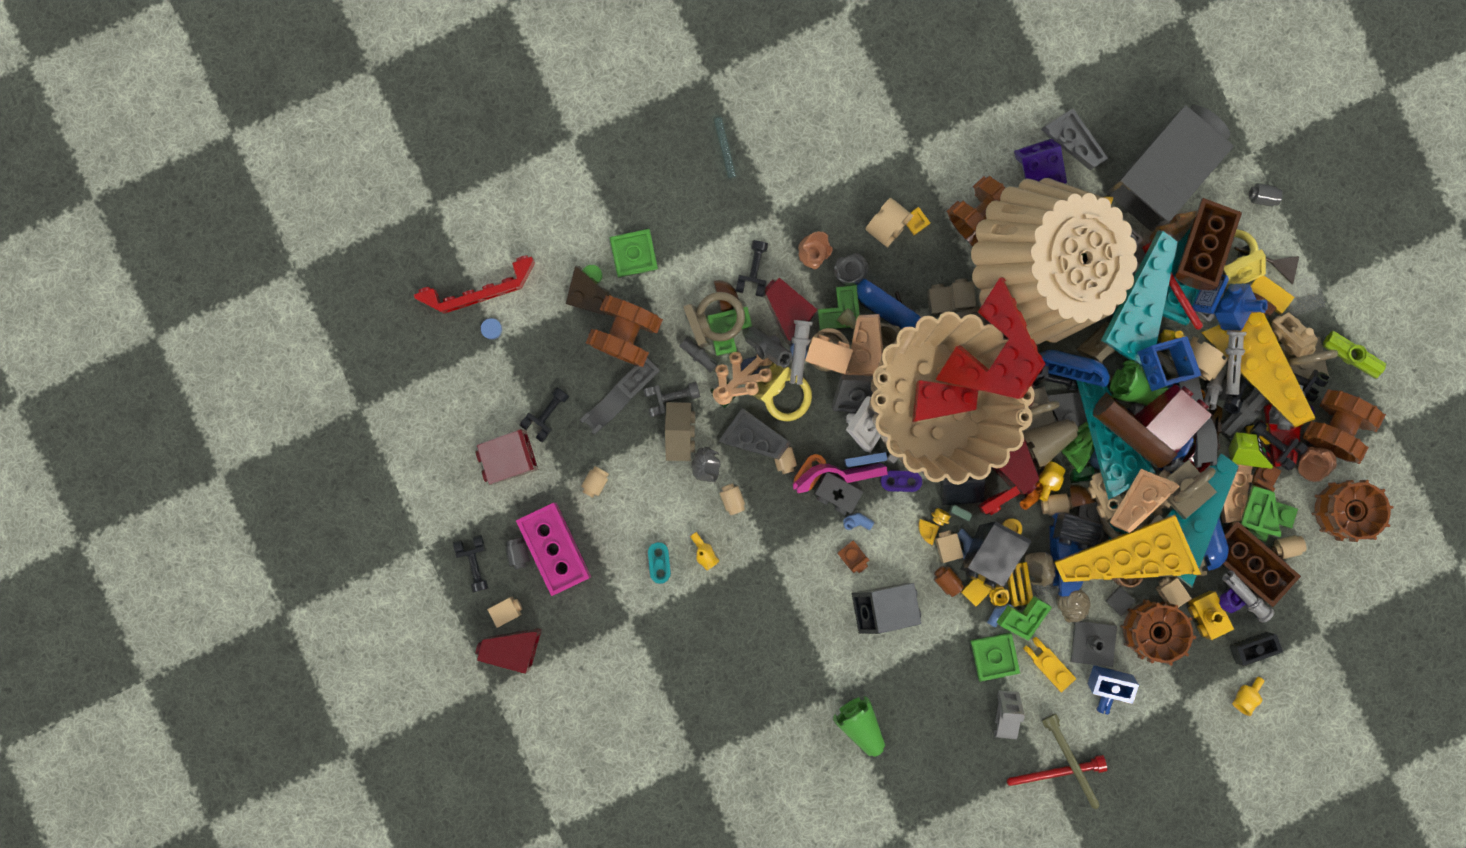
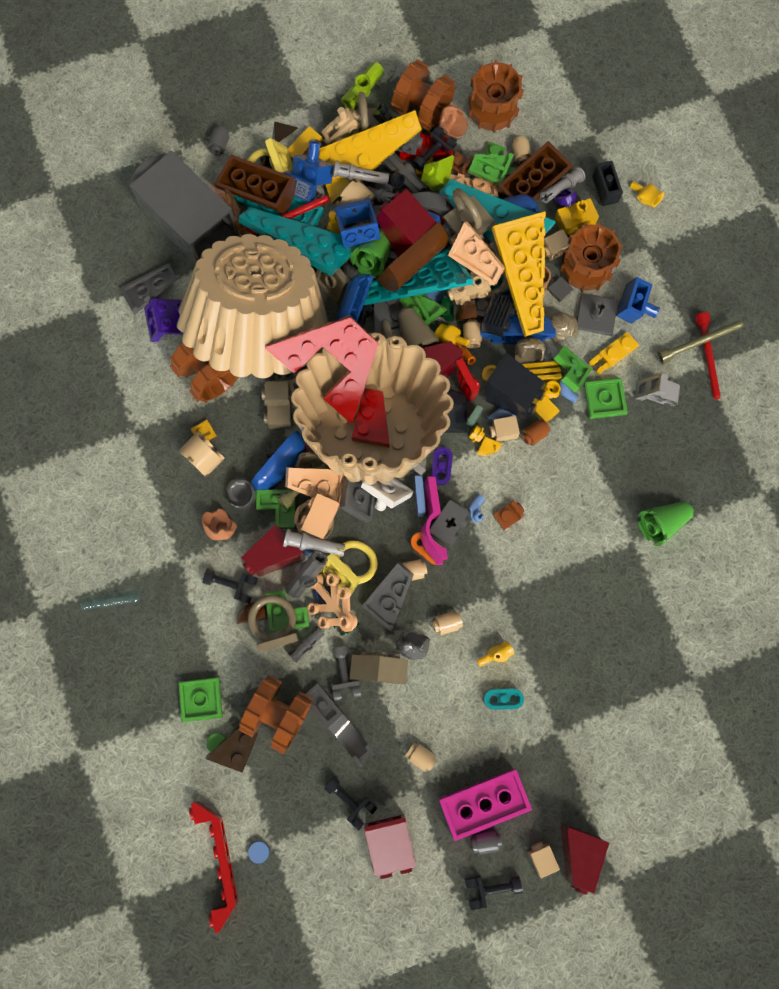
camera: 85 degrees left, 10 degrees down
(886, 608) = (558, 489): slope -> none

